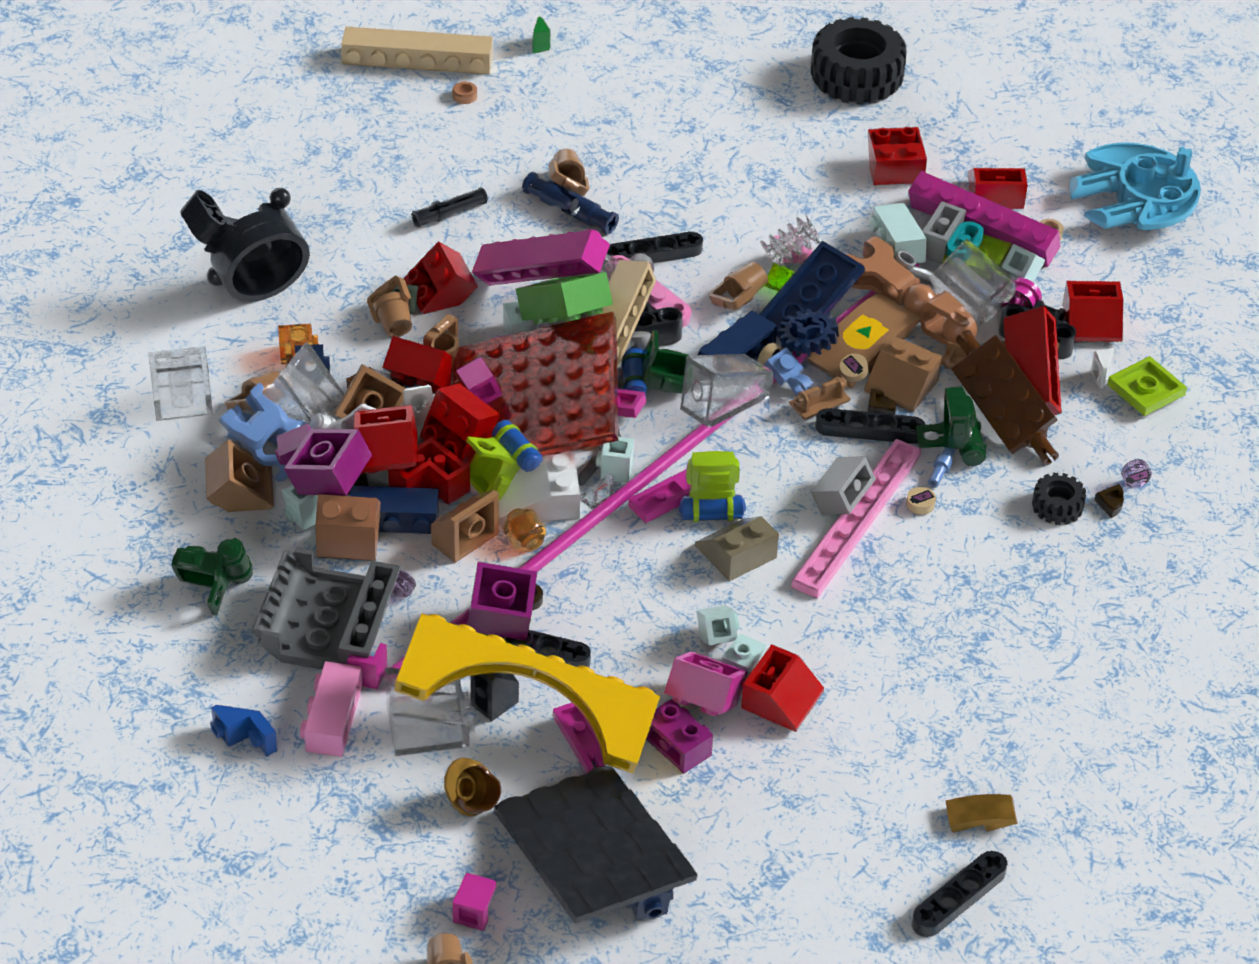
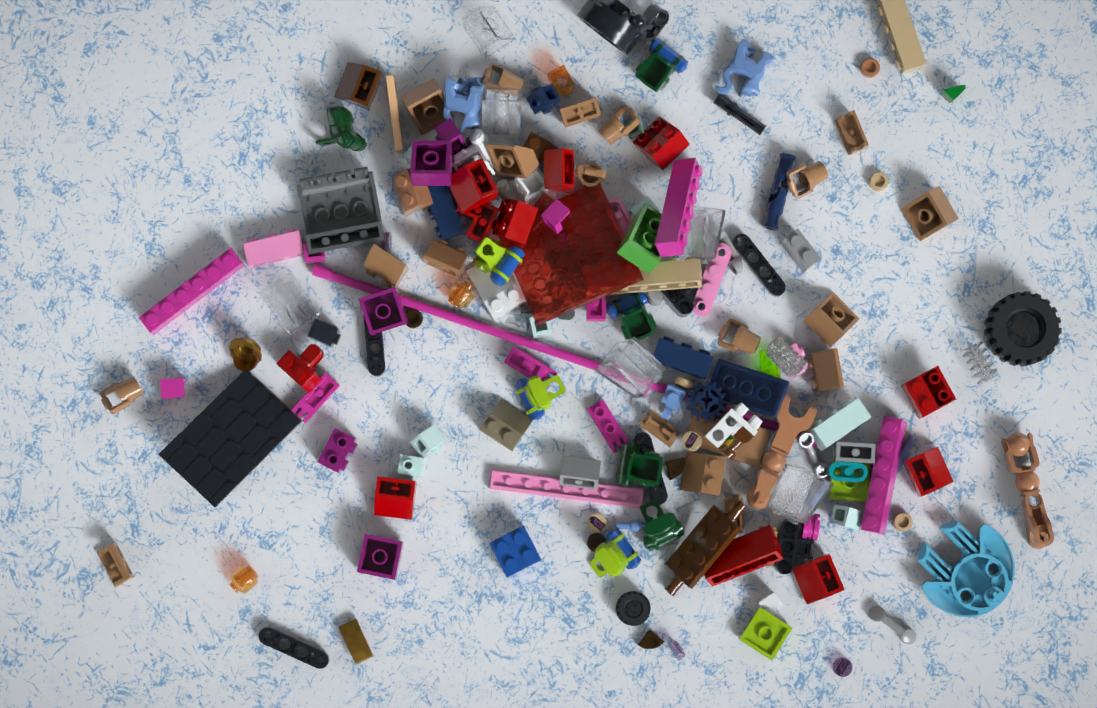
camera: 70 degrees right, 40 degrees up
(157, 532) = (359, 85): none -> reddish brown slope
(226, 516) = (394, 114): none -> light nougat tile
(238, 724) = (238, 198): blue slope -> none
(337, 827) = (191, 291): none -> dark pink brick
(341, 249) = (660, 65): none -> dark green piece
(350, 337) = (580, 112): none -> medium nougat hinge
(397, 181) = (746, 68): none -> medium blue animal
(436, 583) = (385, 266): none -> medium nougat slope
(450, 652) = (304, 305): yellow arch -> none
(532, 726) = (302, 368): none -> red brick
(535, 123) = (851, 132): none -> medium nougat hinge
(608, 126) = (878, 181): none -> tan tile
(656, 204) = (800, 250): none -> light grey brick
(674, 93) = (929, 213): none -> medium nougat slope
(705, 683) = (374, 453): dark pink brick -> none
(761, 207) = (831, 319): none -> medium nougat slope
(790, 449) = (607, 424): none -> dark pink hinge
(823, 913) = (243, 579): none -> clear orange head
(830, 215) = (826, 370): none -> medium nougat slope
(855, 313) = (734, 424): none -> white hips
(864, 423) = (638, 466): none -> dark green piece
(864, 732) = (380, 556): none -> magenta brick
(880, 106) = (979, 362): none -> clear piece
(924, 587) = (515, 551): none -> blue brick
(948, 510) = (595, 540): none -> dark brown tile
(976, 484) = (615, 555): none -> lime piece
(1098, 113) = (1028, 484): none -> nougat piece
(1162, 281) = (877, 614): none -> light grey bar
(1219, 336) = (842, 667): none -> clear purple tile

